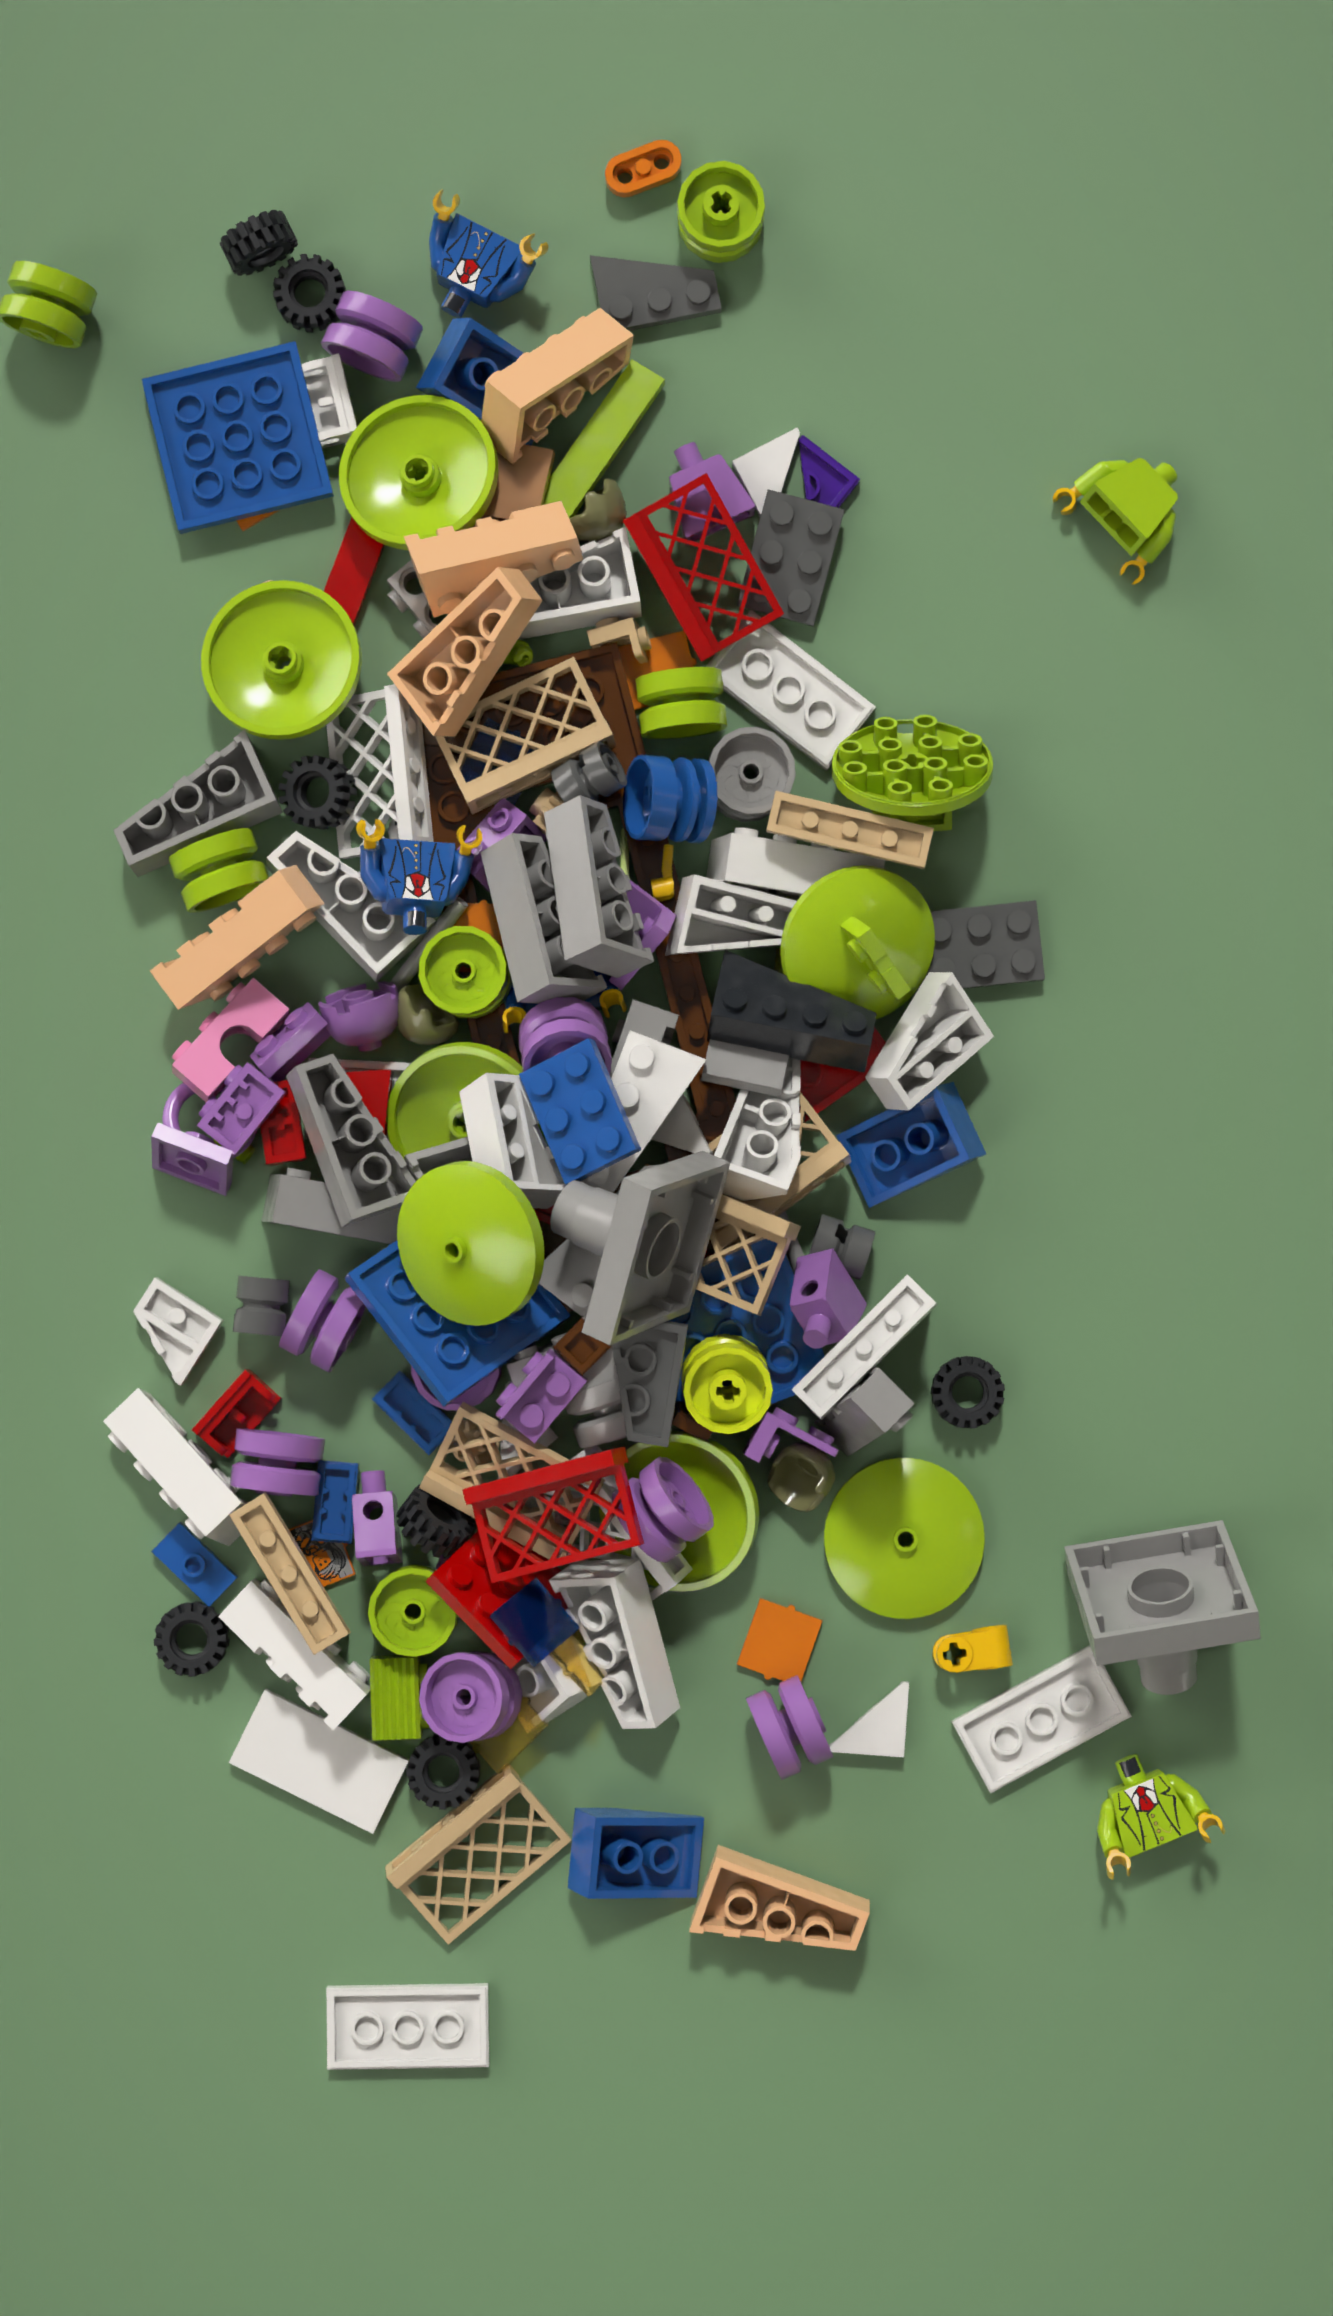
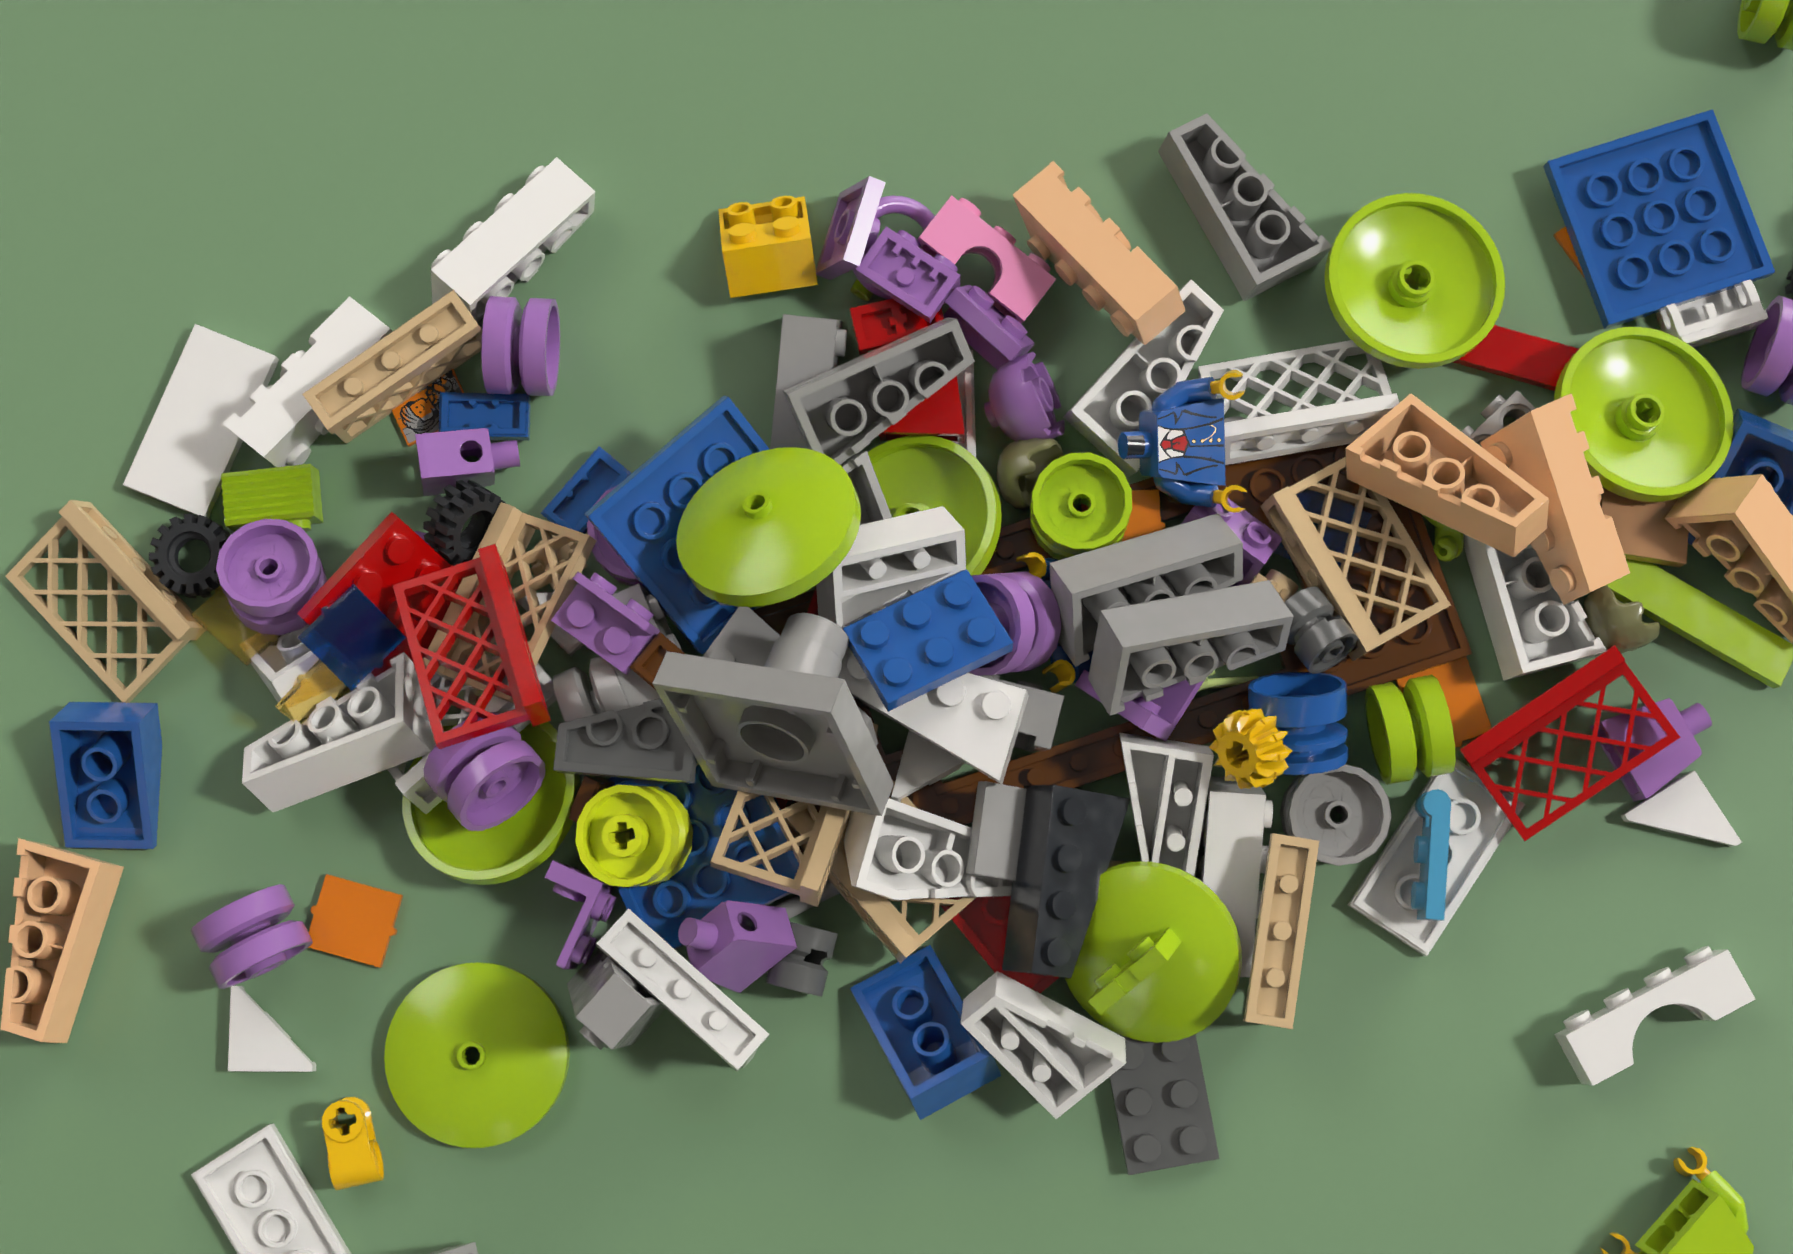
camera: 90 degrees right, 5 degrees down
(167, 1644) = (310, 255): black tyre -> none
(176, 1326) = (666, 232): white wing -> none
(194, 1564) = (406, 273): blue plate -> none
(198, 1235) = (767, 246): none -> yellow slope
(218, 869) = (1174, 229): lime wheel -> none
(238, 1408) = (582, 304): red hinge -> none
(261, 1305) = (694, 318): dark grey wheel -> none
(297, 786) = (1269, 313): black tyre -> none
(319, 1318) = (678, 381): medium lavender wheel -> none
(405, 1633) = (347, 489): lime wheel -> none
(444, 922) = (1139, 486): light grey bar -> none
(623, 632) = (1483, 661): tan bracket -> none
(664, 887) = (1195, 725): yellow hand -> none
(692, 842) = (1250, 748): none -> yellow gear
(789, 694) = (1432, 853): none -> dark azure plate
(793, 554) = (1593, 848): dark grey plate -> none
(801, 1476) = (536, 930): olive hair -> none
(823, 476) = (1678, 880): dark purple tile -> none
(913, 774) = (1352, 1003): lime bracket -> none
(959, 564) = (1603, 1041): none -> white arch
(992, 1392) = (617, 1116): black tyre -> none

